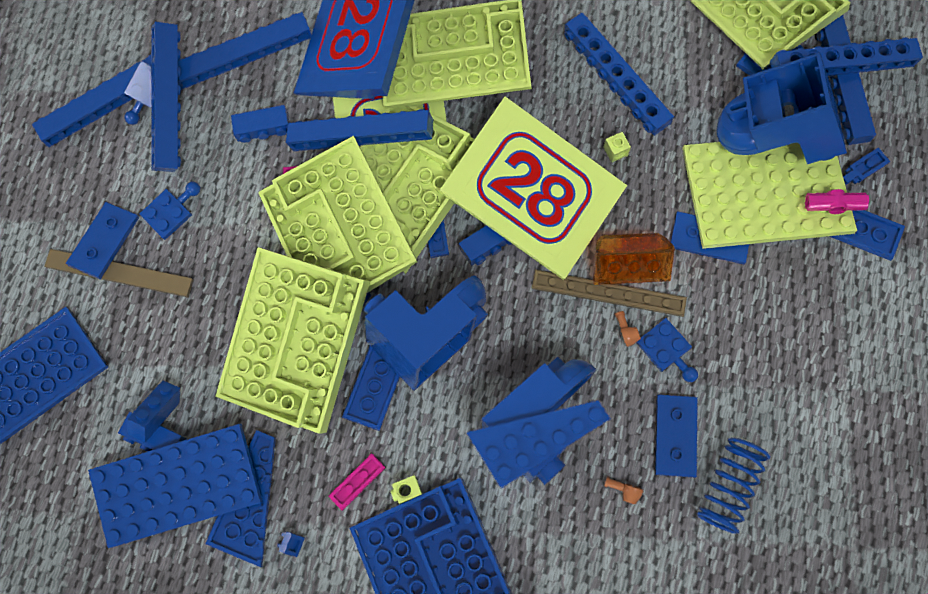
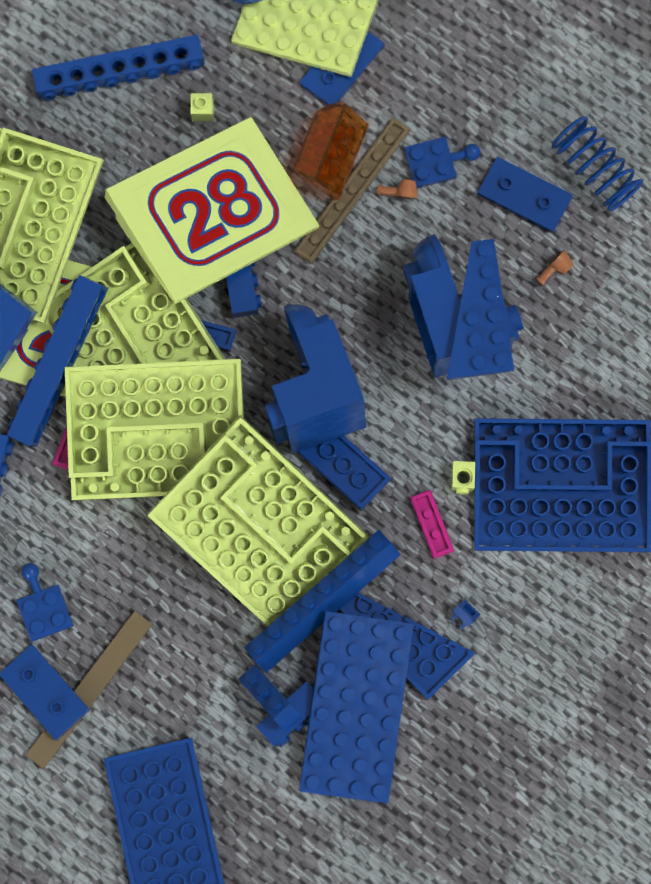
camera: 70 degrees left, 5 degrees up
(254, 419) = (326, 595): none -> blue brick

